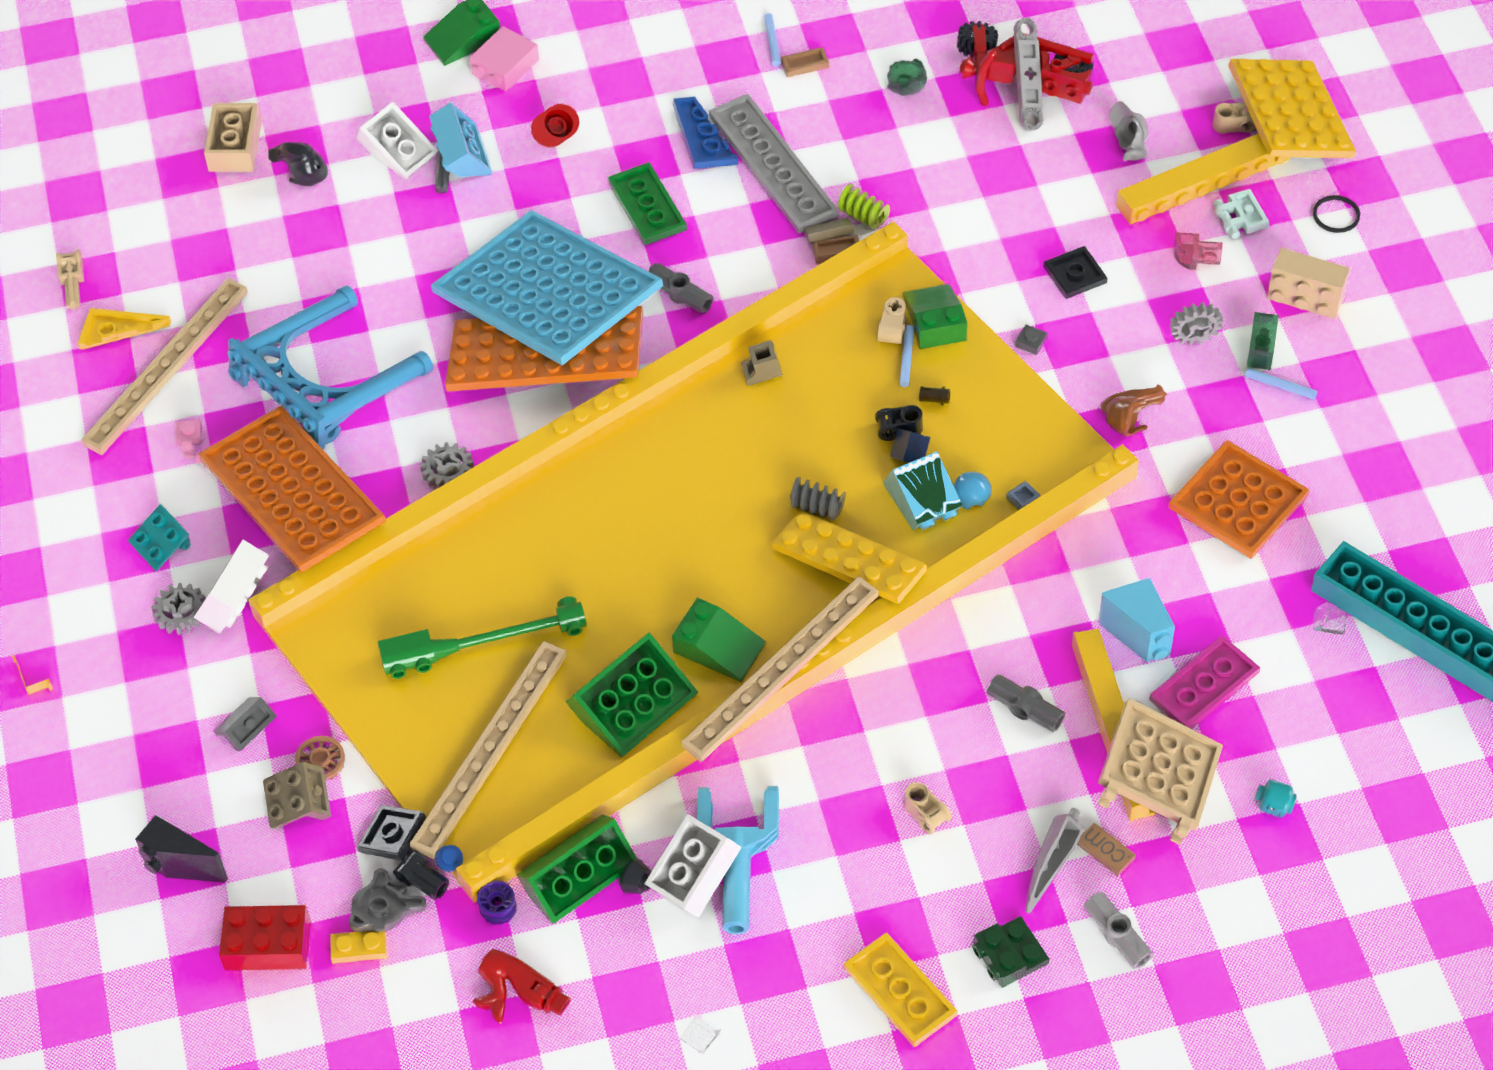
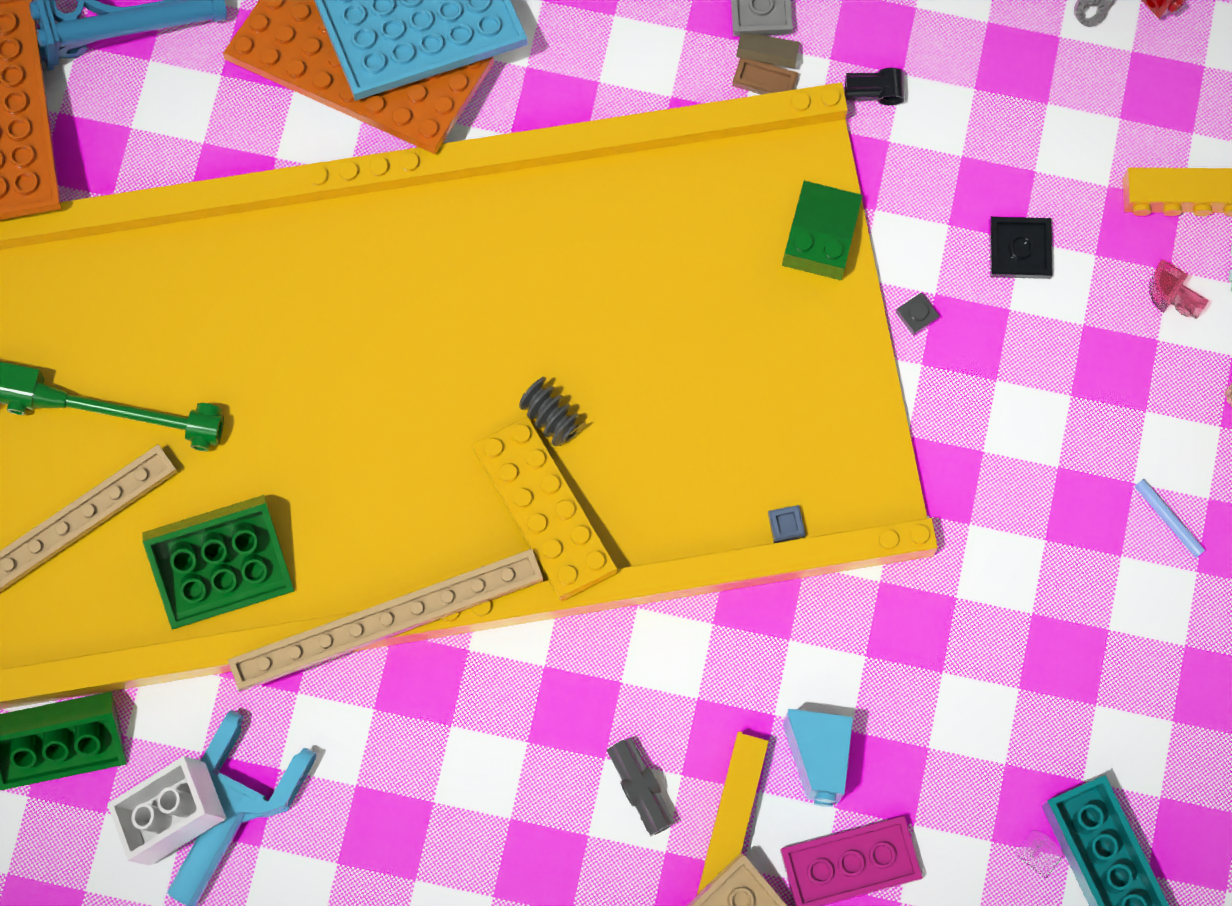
camera: 20 degrees right, 20 degrees up
(445, 463) = (179, 146): light grey gear -> none
(634, 877) = (107, 784): black cone -> none
(681, 289) = (562, 61): dark grey piece -> none
(717, 640) = (346, 540): green slope -> none
(761, 363) = (589, 199): dark tan brick -> none
(862, 208) = (820, 39): lime piece -> none
(893, 321) = (762, 222): tan piece -> none
(905, 418) = (696, 356): black piece -> none
(906, 356) = (760, 269): light blue bar -> none
(909, 446) = (693, 395): dark blue panel -> none
(921, 217) = (884, 86): none -> black piece
(923, 491) = (673, 466): slope -> none
(929, 811) = (459, 863): tan piece -> none
(936, 395) = (760, 339): dark brown pin -> none
(972, 489) = (732, 486): dark azure hair -> none
(1123, 408) = (969, 461): dark orange piece -> none
(1130, 130) = (1196, 89): light grey hair -> none
(1196, 323) = (1112, 397): light grey gear -> none
(1239, 499) = (1028, 648): orange plate -> none
(1262, 341) = (1177, 456): clear green brick -> none

